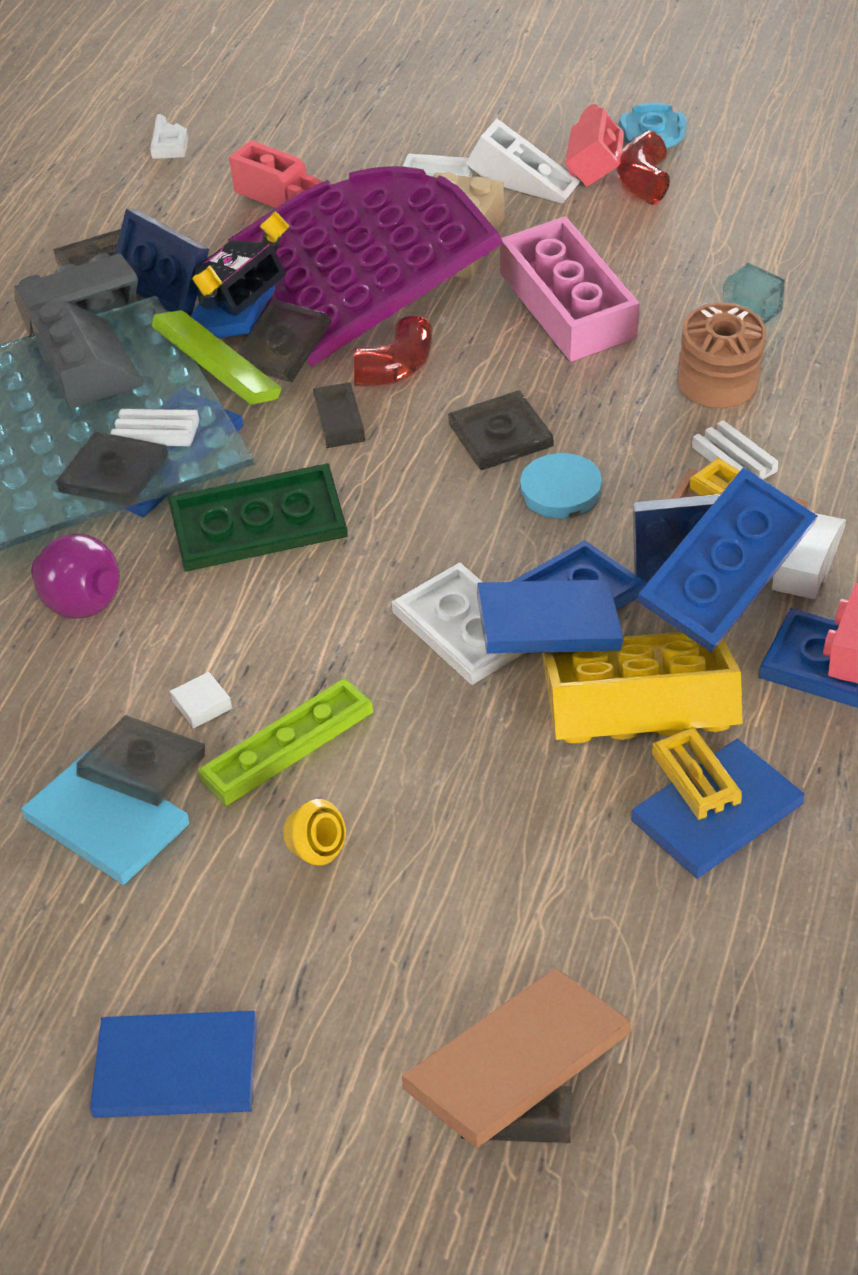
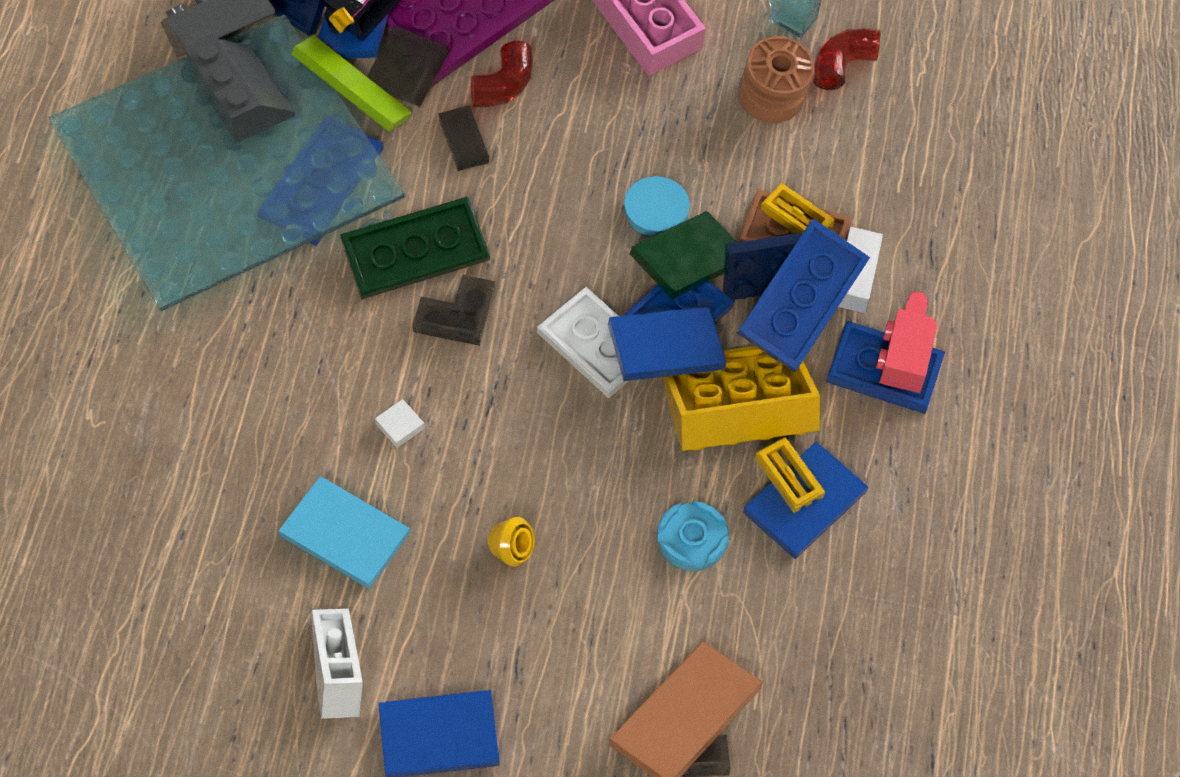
camera: 15 degrees left, 15 degrees up
(54, 968) = (336, 664): none -> white slope
(76, 576) = (278, 314): magenta brick -> none
(112, 468) = (289, 209): clear smoke plate -> none
(140, 760) = (365, 483): clear smoke plate -> none
(158, 426) = (317, 160): white tile -> none
(285, 741) = (472, 457): lime tile -> none
(295, 592) = (460, 320): none -> clear smoke plate
(500, 430) = (600, 151): clear smoke tile -> none
(560, 856) = (692, 547): none -> medium azure tile
(583, 529) = (684, 254): none -> dark green tile
(739, 450) = (795, 168): white tile -> none
(808, 333) = (841, 50): none -> clear red cylinder

